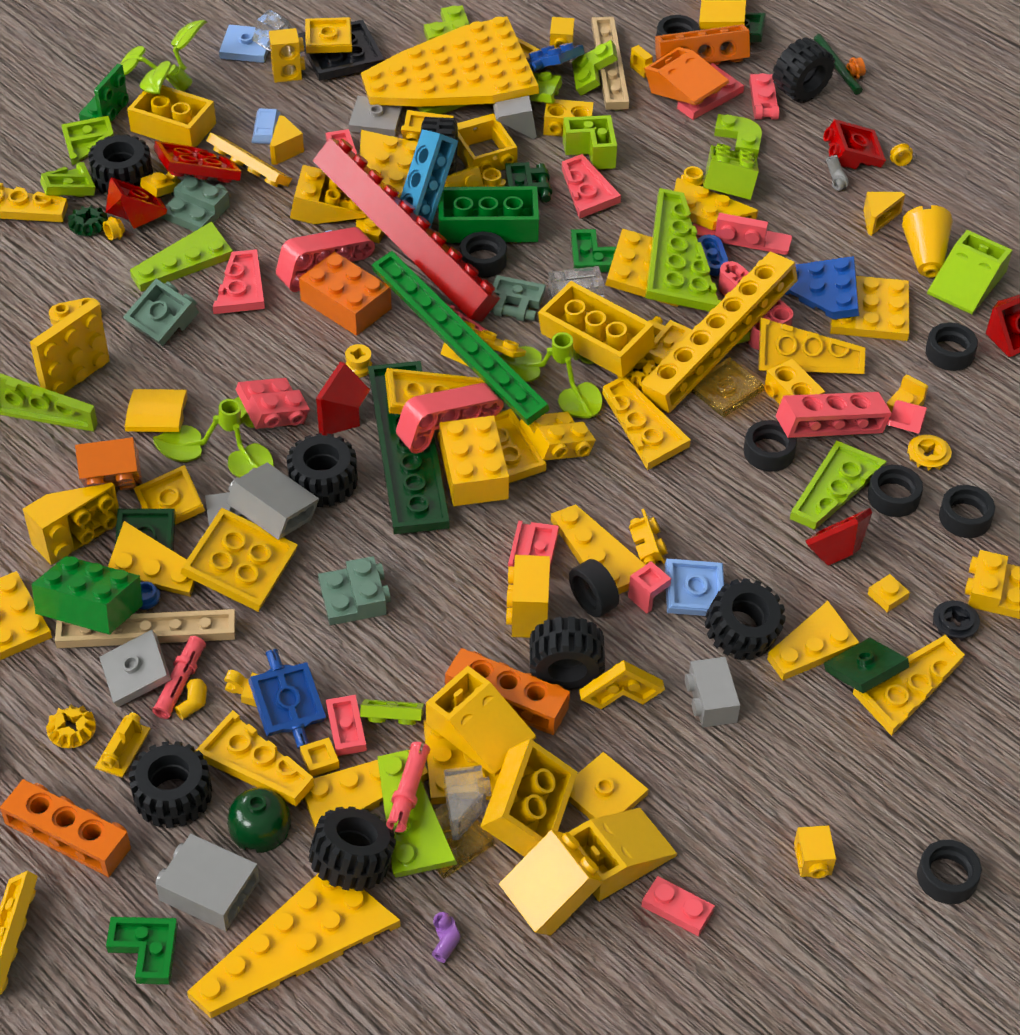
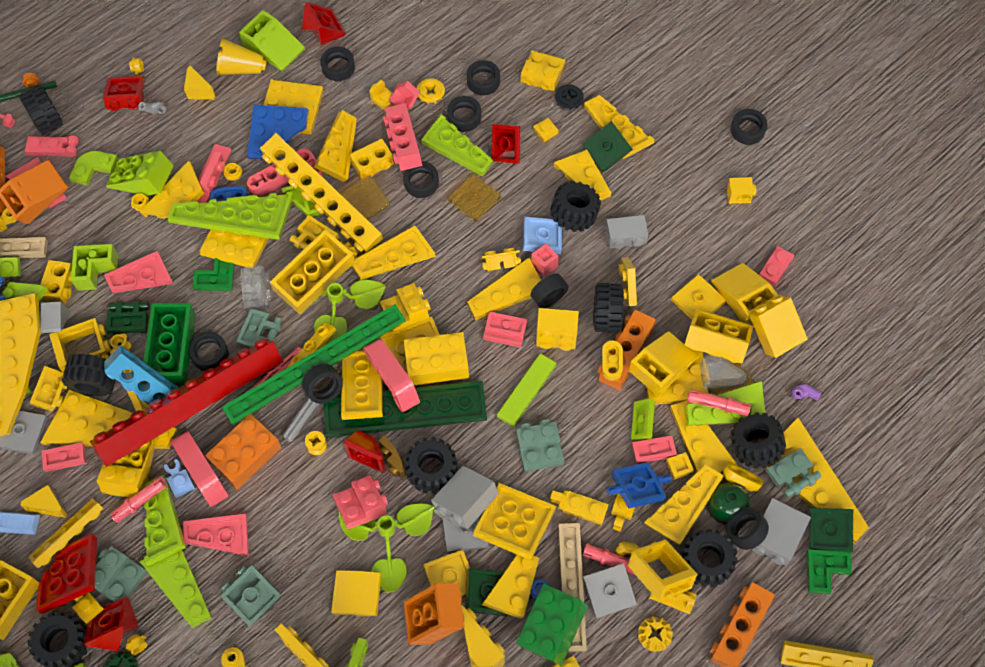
camera: 85 degrees left, 15 degrees up
(126, 725) = (679, 582): none -> yellow window
(205, 952) = (831, 529): none -> dark green plate
(207, 823) = (755, 537): none -> black tyre
(258, 231) = (162, 527): none -> lime wing
(264, 636) = (580, 506): none -> yellow hinge
(280, 206) = (131, 505): none -> coral pin
(296, 834) = (743, 477): none -> yellow plate
(306, 893) = (791, 467): none -> sand green plate
(348, 428) = (394, 461): none -> pearl gold slope
(398, 348) = (299, 420): none -> light grey axle
(441, 577) = (526, 390): none -> lime tile
(442, 340) = (317, 373): none -> black tyre
(476, 654) = (612, 361): none -> yellow plate
(751, 255) = (232, 167): none -> yellow plate
(751, 510) = (474, 198): none -> clear yellow plate

